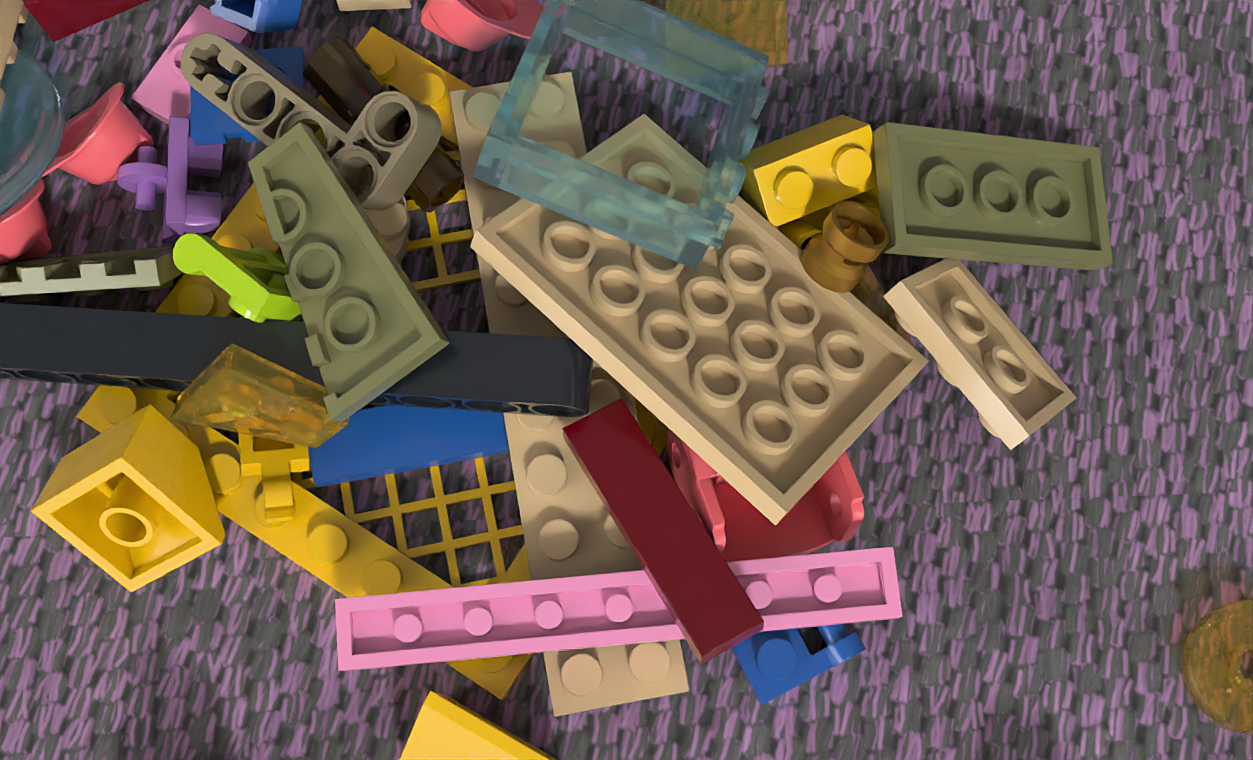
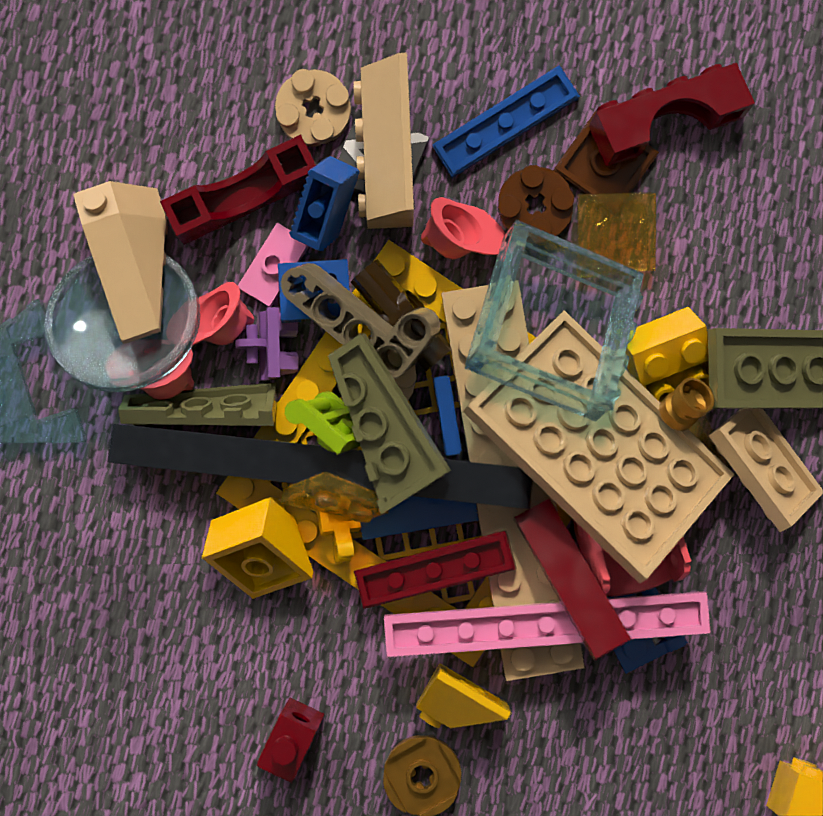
camera: 10 degrees right, 10 degrees up
(431, 525) = (435, 569): none -> dark red tile
(455, 271) = (447, 415): none -> blue tile

